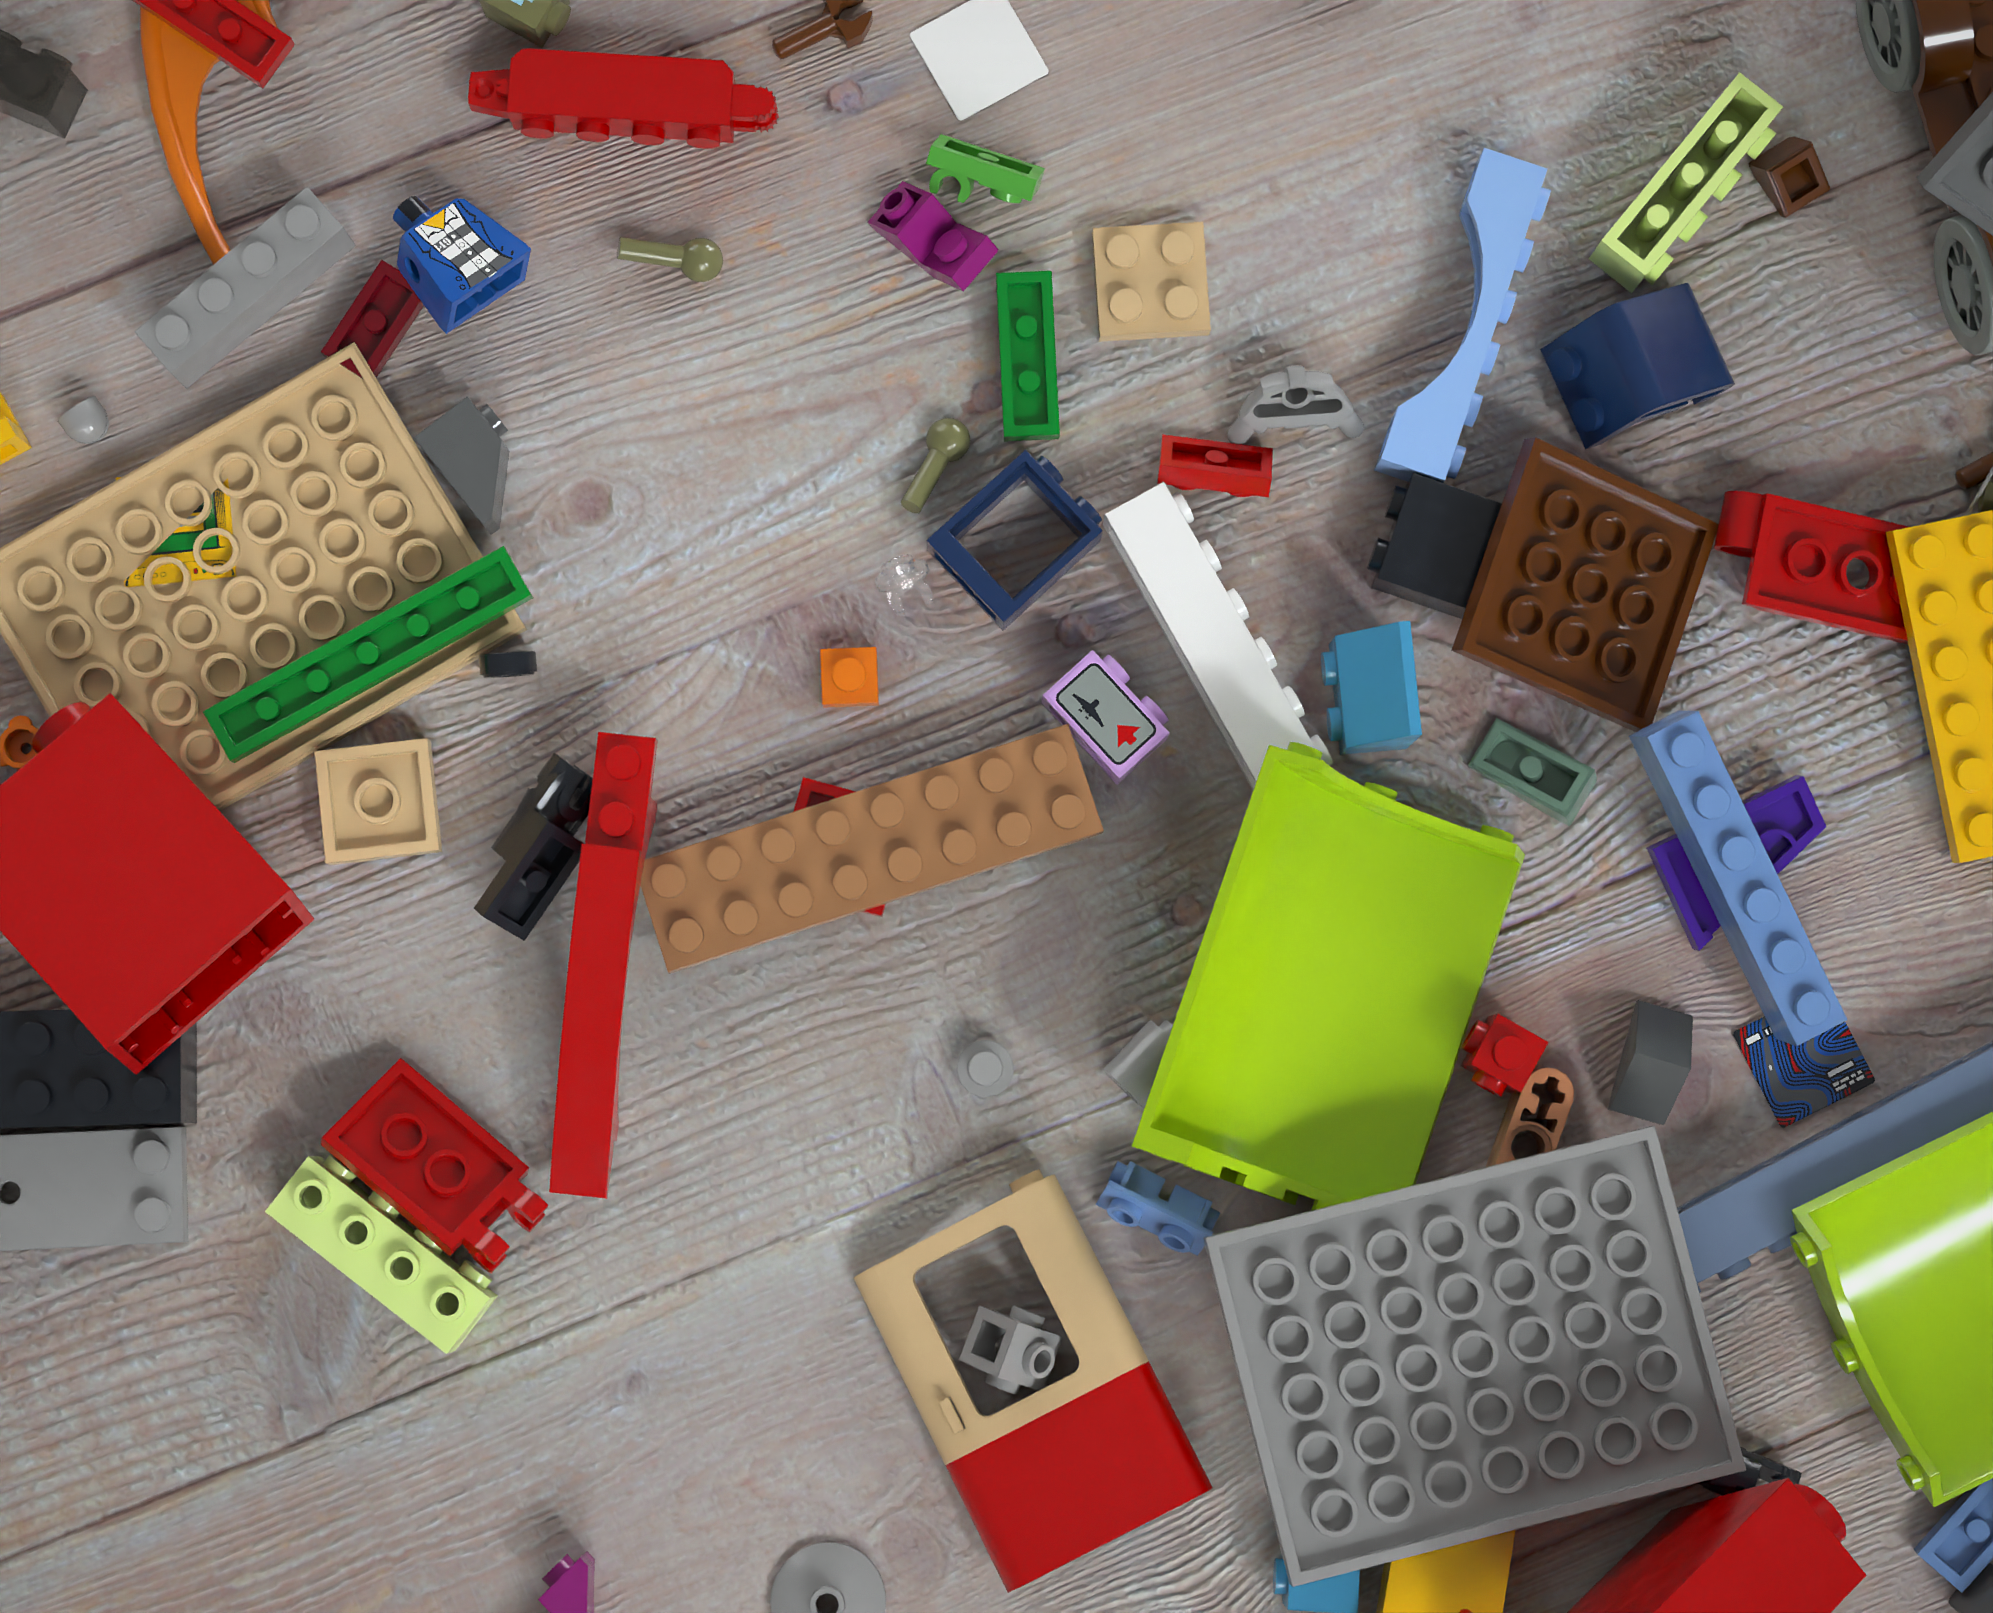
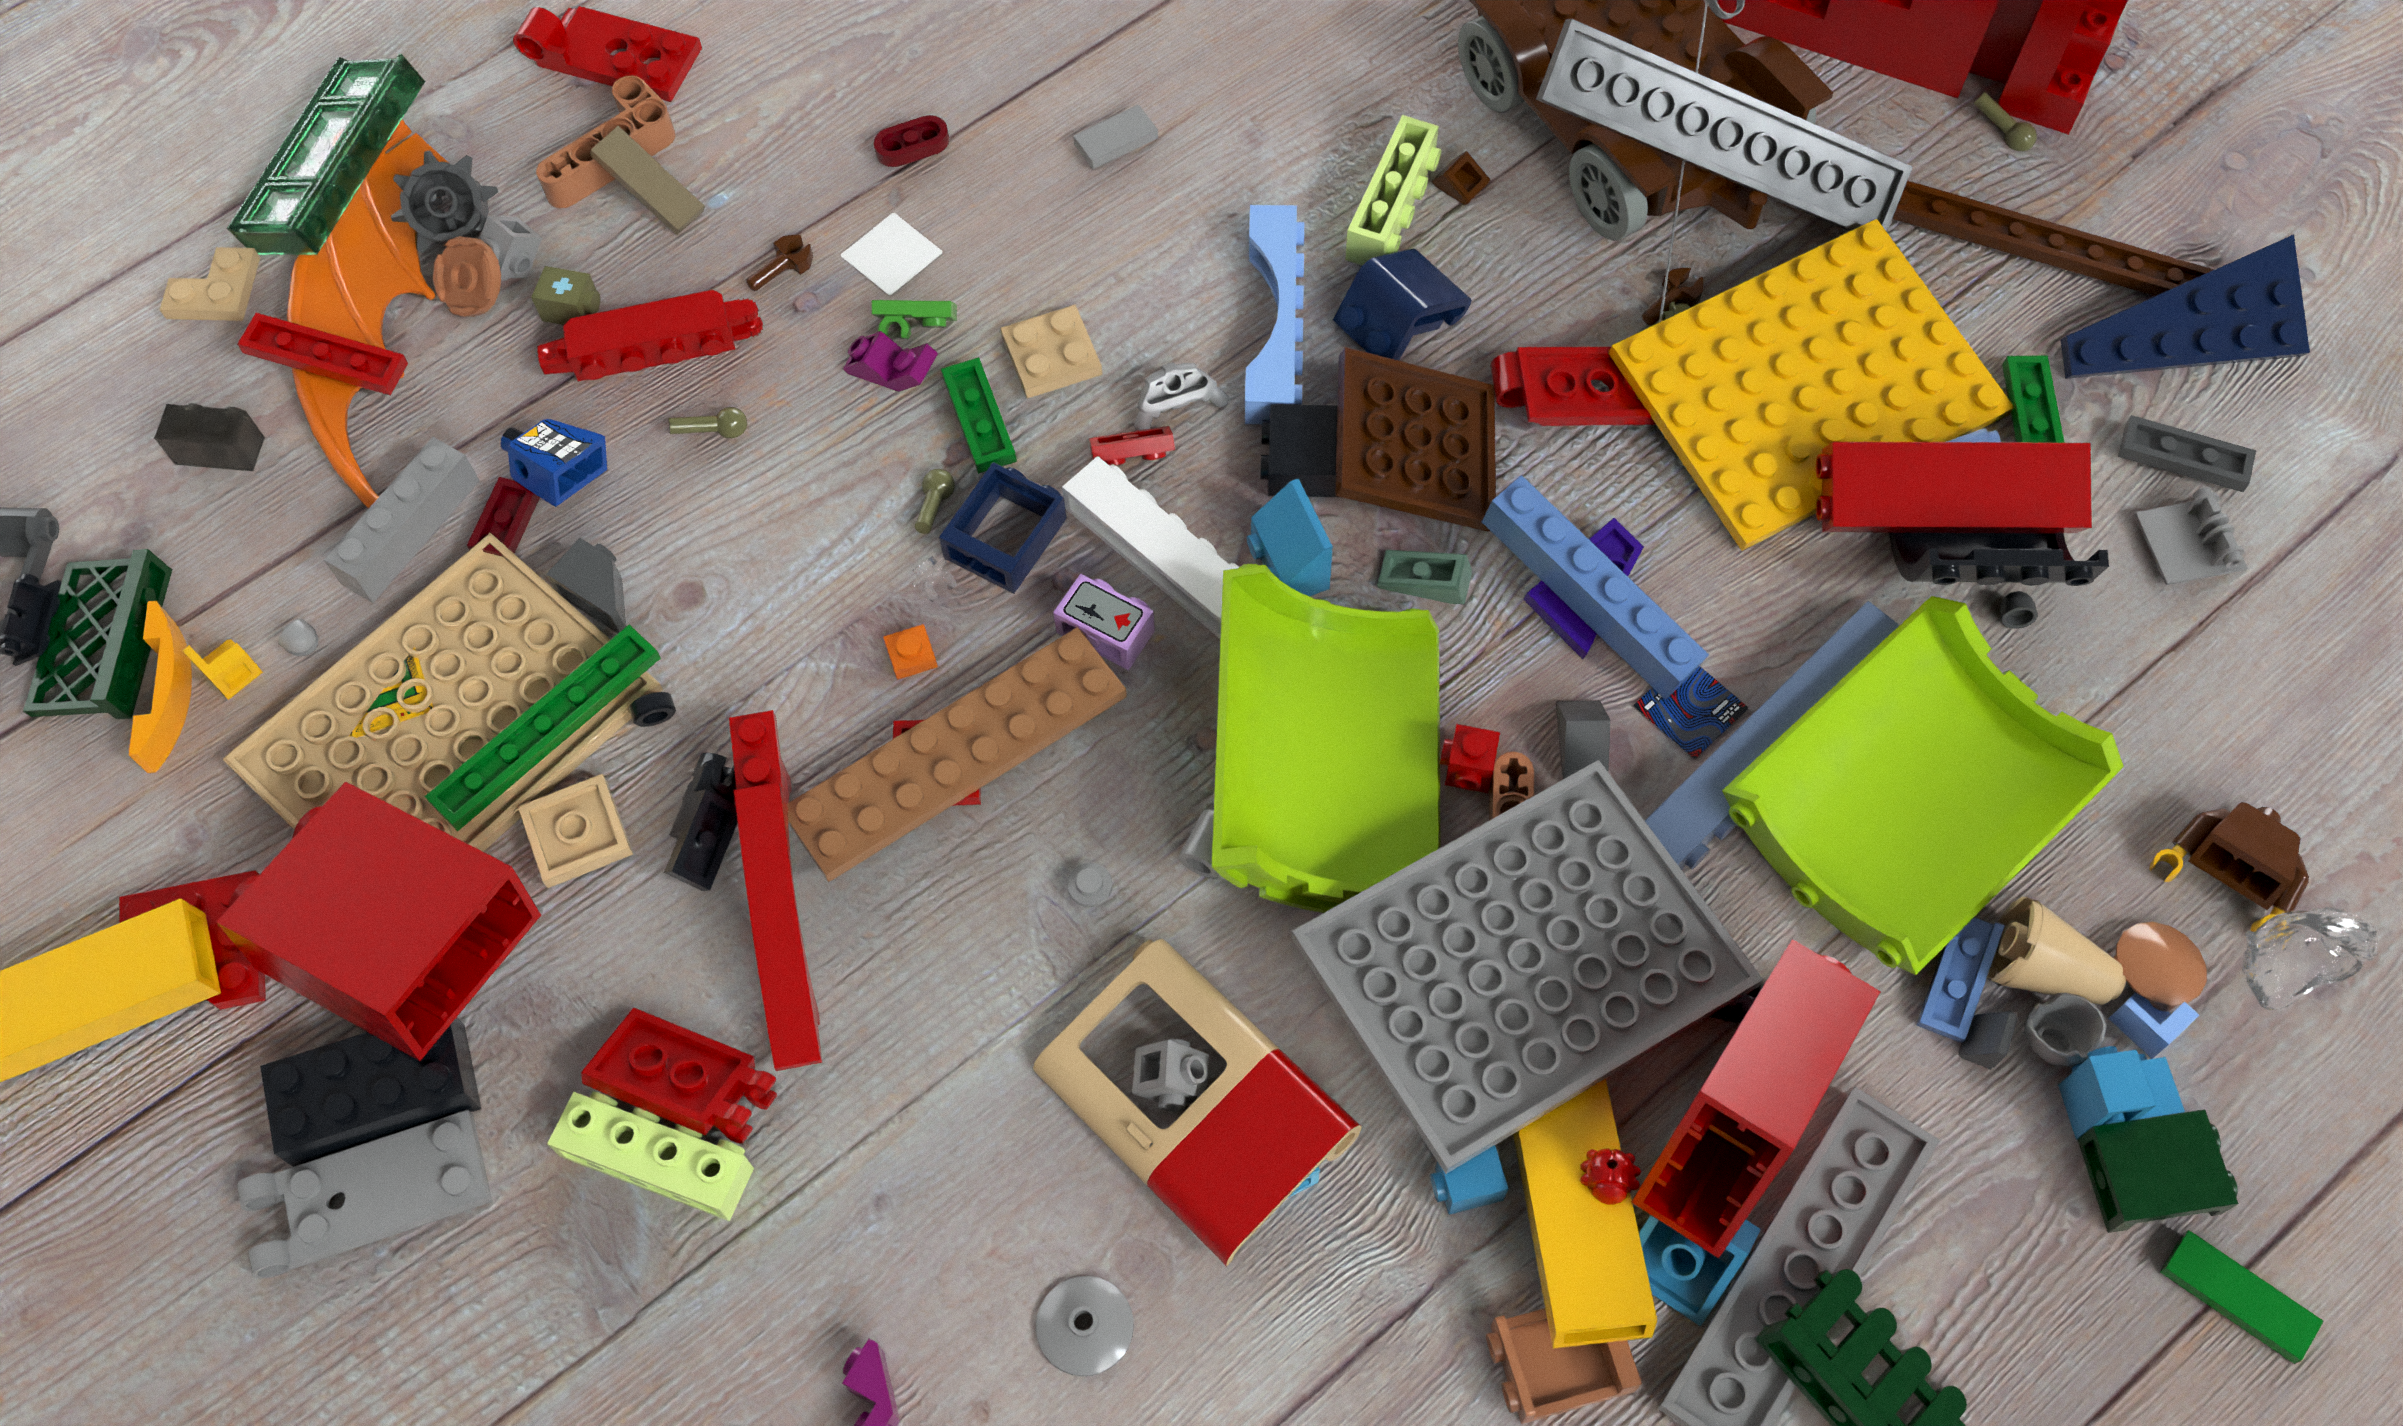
camera: 10 degrees left, 20 degrees down
(1134, 1201) = (1235, 945): medium blue hinge -> none

